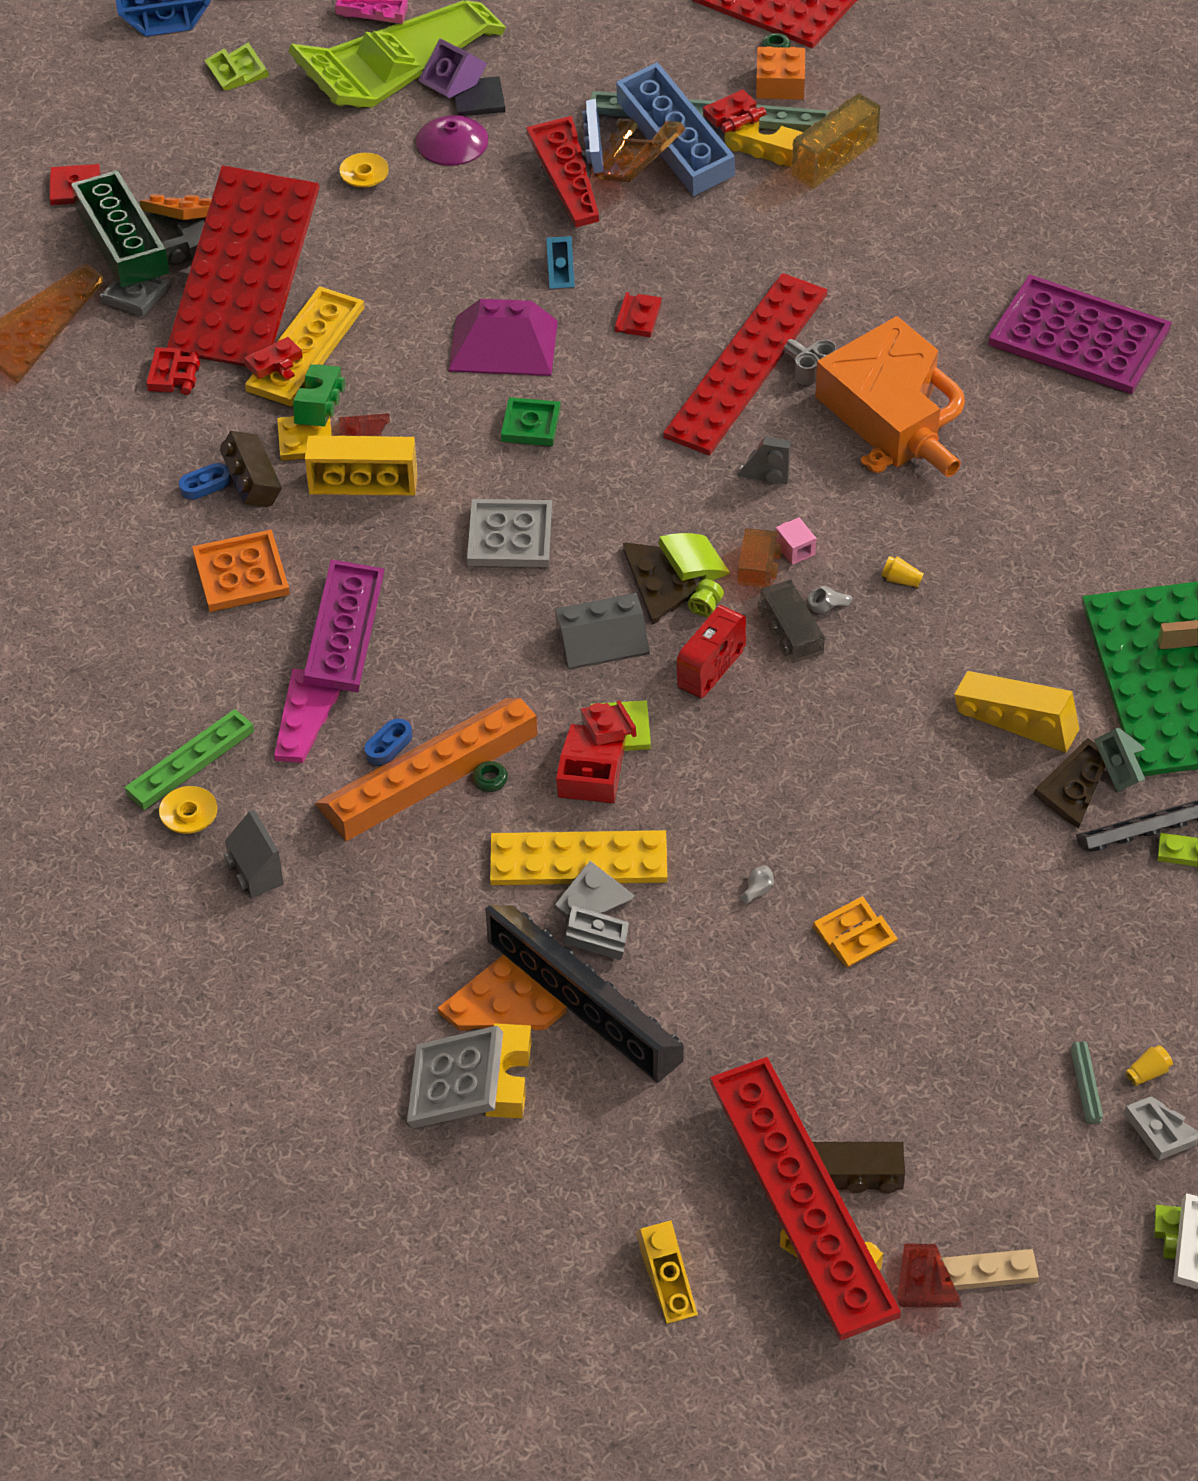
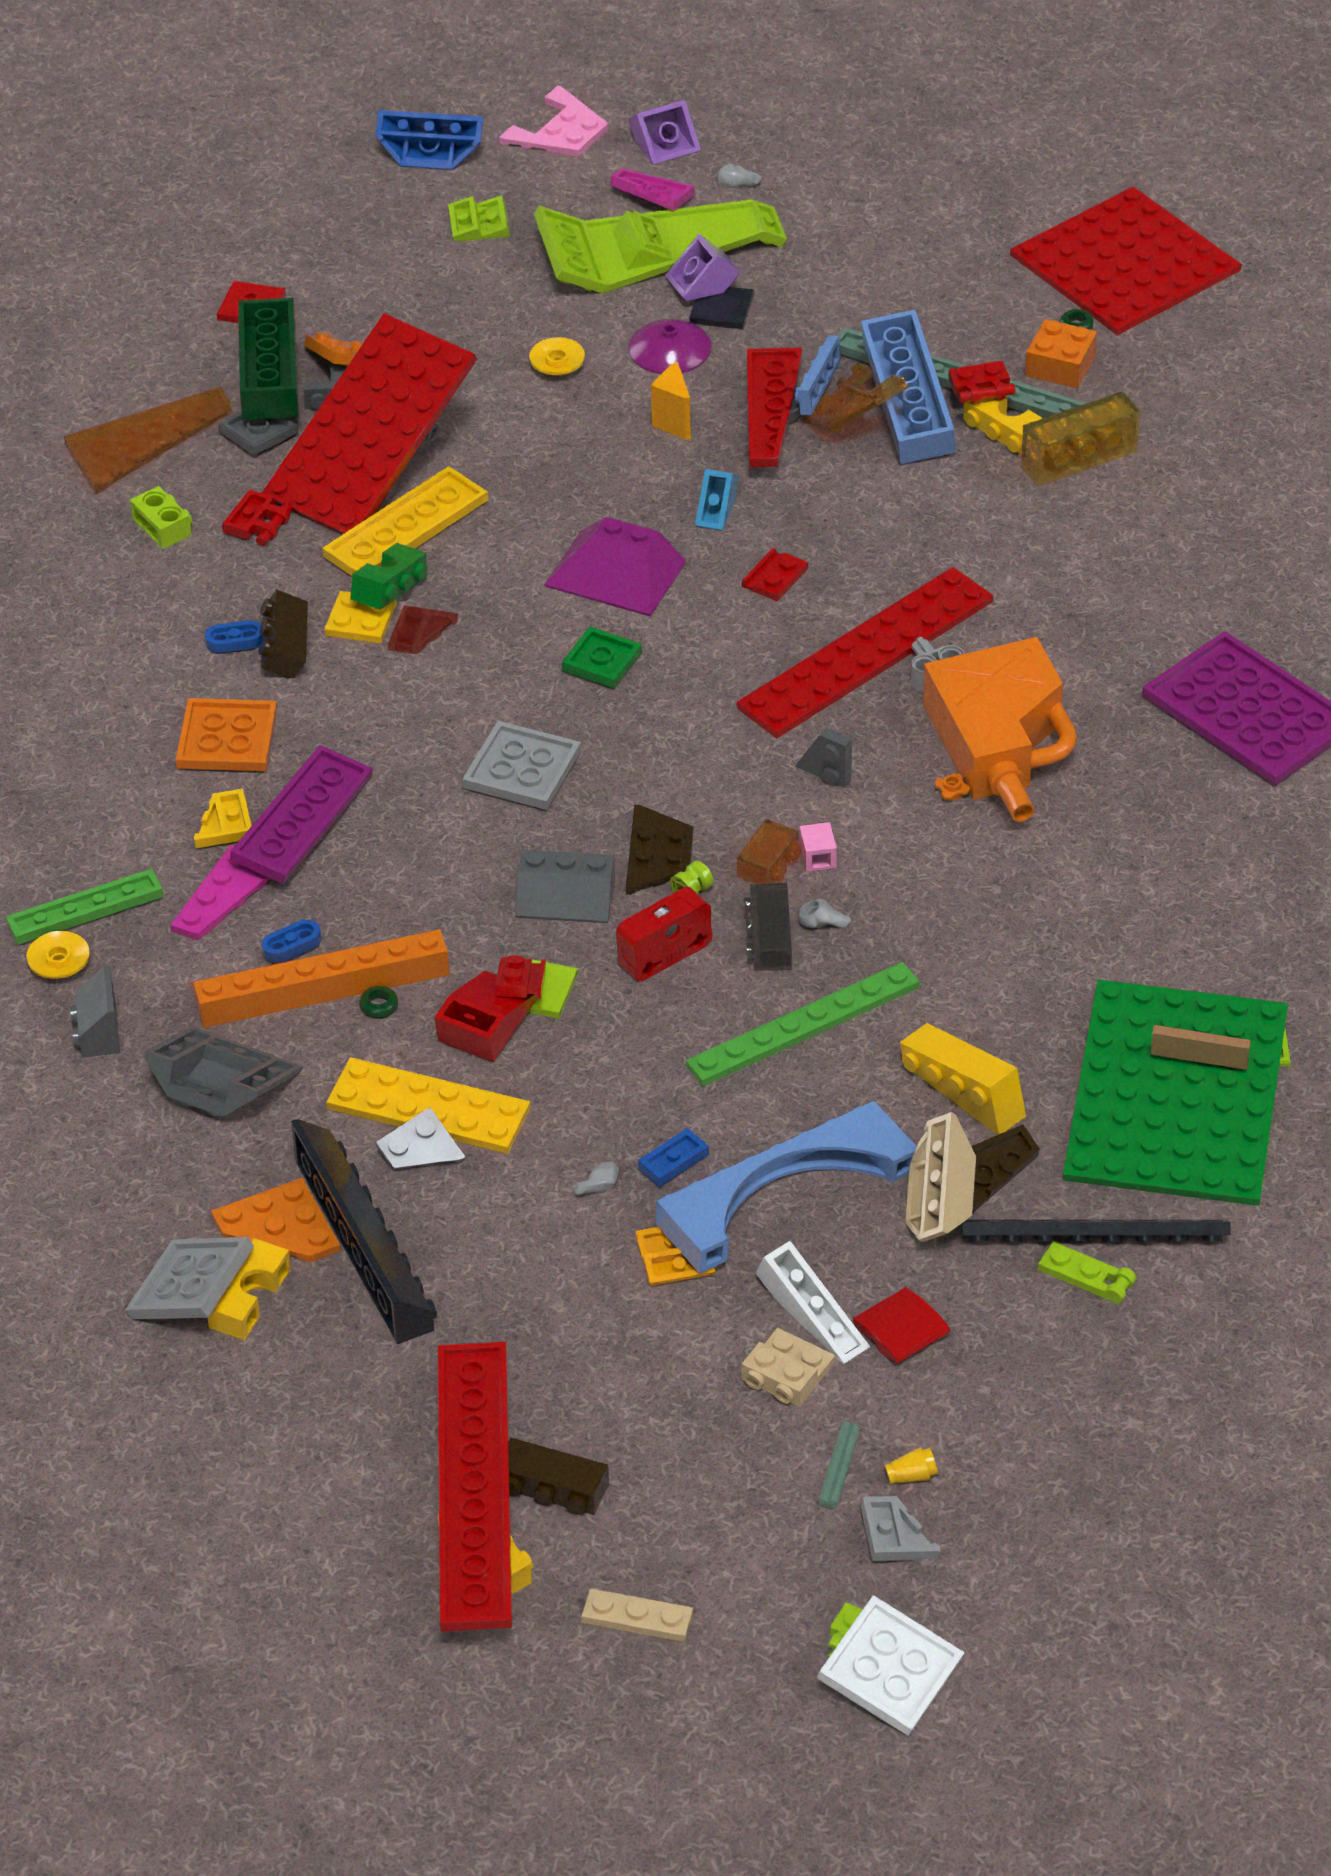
camera: 20 degrees right, 5 degrees down
(88, 390) = (161, 517): none -> lime brick
(274, 358) = (363, 529): red plate -> none
(277, 647) = (224, 820): none -> yellow wing
(361, 465) = (396, 657): yellow brick -> none
(384, 881) = (212, 1076): none -> dark grey slope
(487, 188) = (671, 403): none -> light orange slope
(596, 932) = (404, 1180): dark grey plate -> none
(666, 1271) = (309, 1519): yellow slope -> none
(692, 556) = (701, 834): lime slope -> none
(811, 846) = (673, 1157): none -> blue plate
(857, 699) = (802, 1024): none -> bright green plate
(901, 572) = (915, 907): yellow cone -> none
(925, 1279) = (565, 1603): clear red wing -> none
(960, 790) = (857, 1141): none -> medium blue arch
(989, 942) = (809, 1302): none -> white slope
(999, 1007) = (786, 1367): none -> tan plate
(1050, 807) = (940, 1179): none -> tan wedge
(1075, 942) = (901, 1325): none -> red slope
(1118, 754) = (1044, 1149): sand green slope -> none

